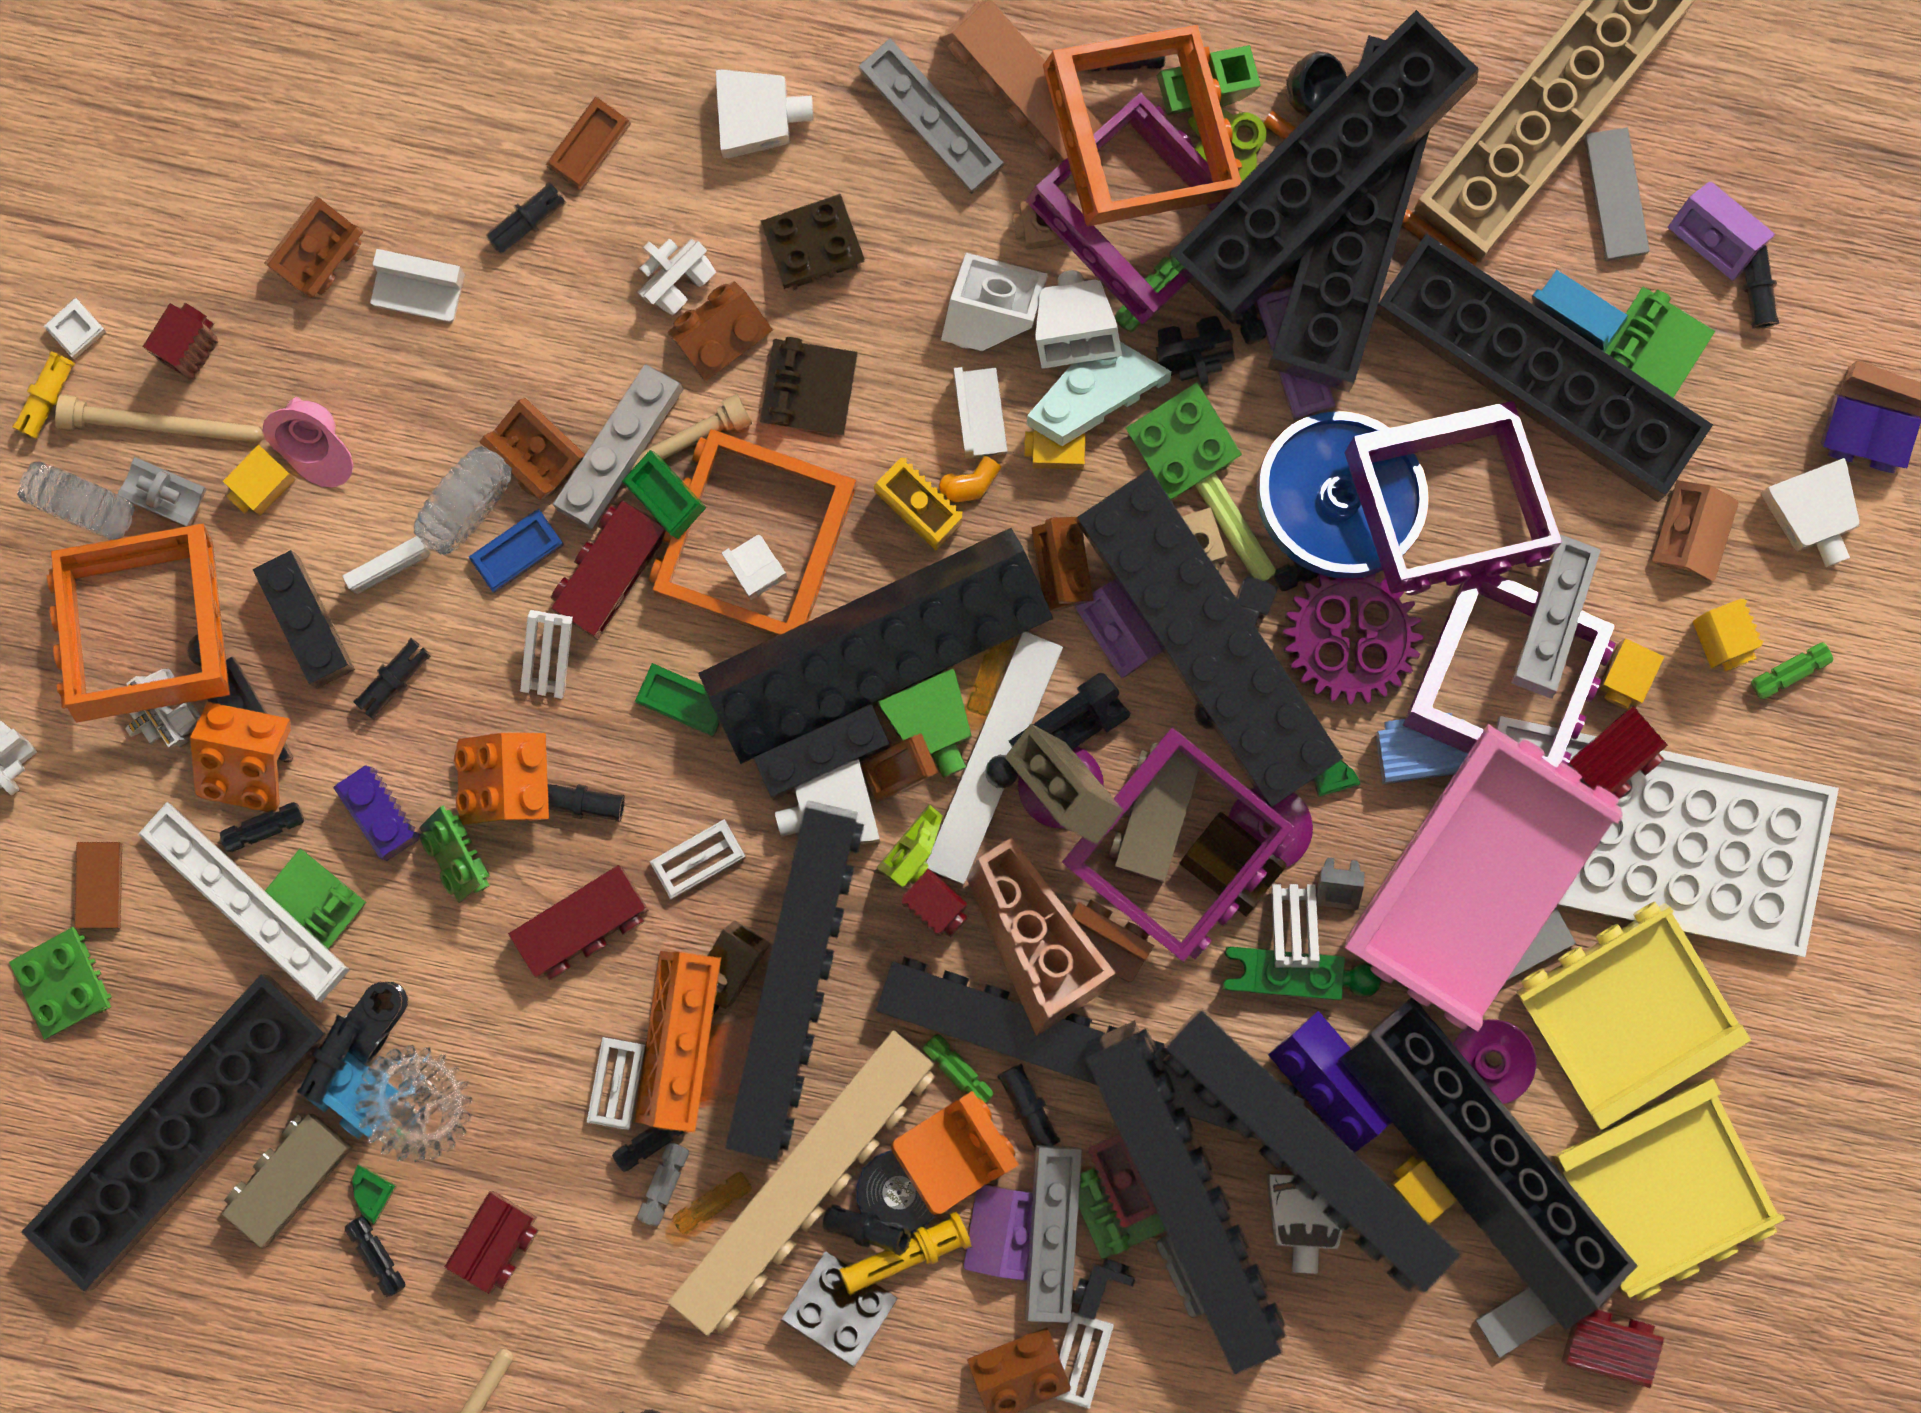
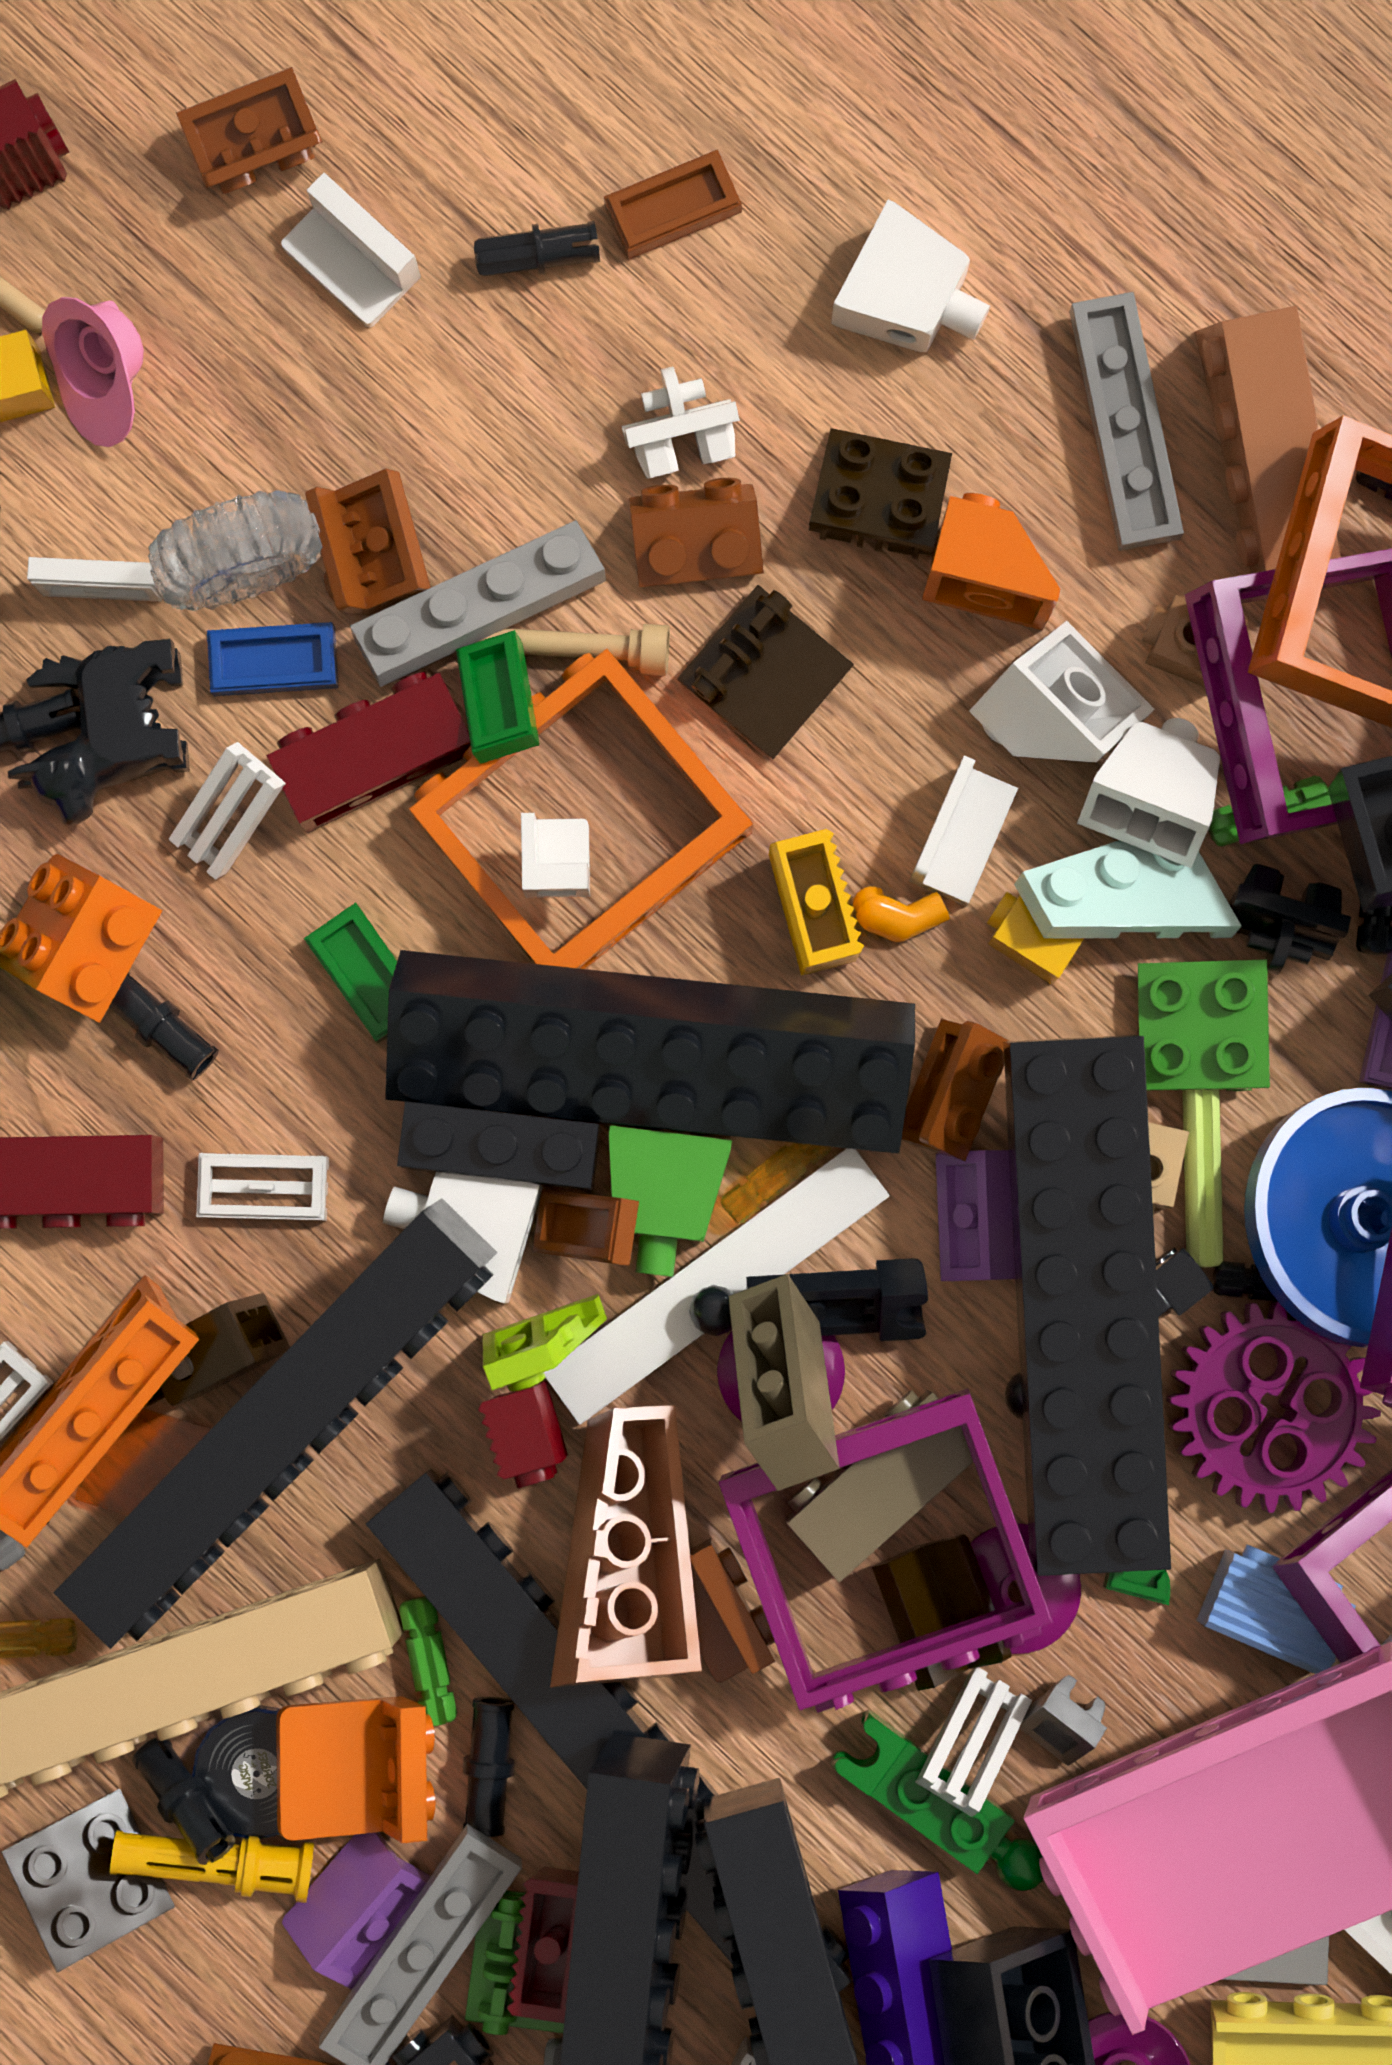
camera: 30 degrees right, 0 degrees up
(453, 644) = (117, 726): none -> black animal
(901, 249) = (989, 565): none -> orange slope

